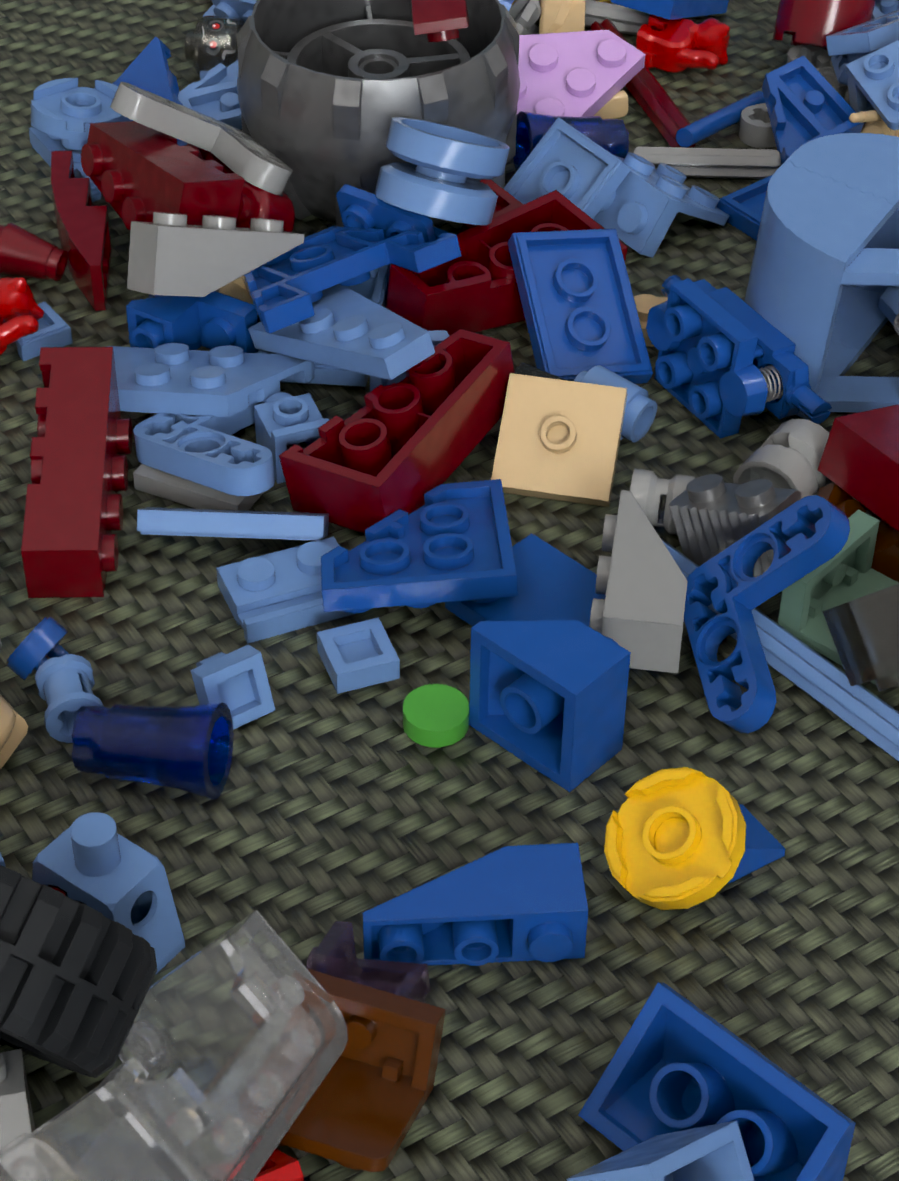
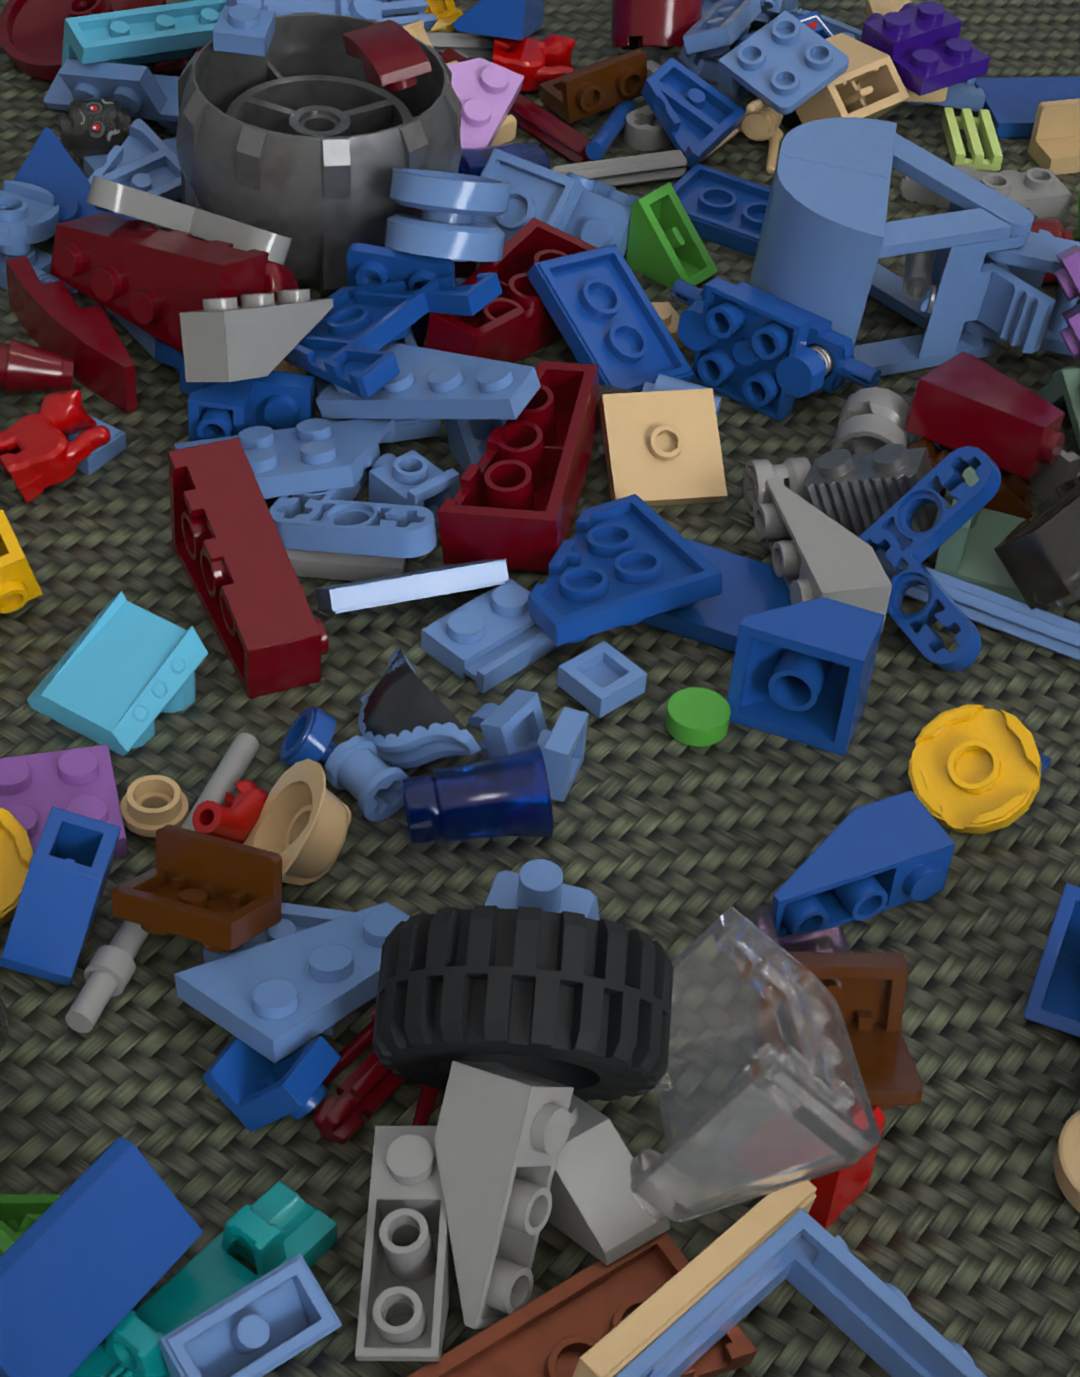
camera: 25 degrees left, 0 degrees up
(145, 647) = (409, 720): none -> hat
(267, 719) = (564, 750): none -> medium blue plate
(701, 236) = (665, 241): none -> bright green slope
(726, 75) = (596, 86): none -> reddish brown bracket

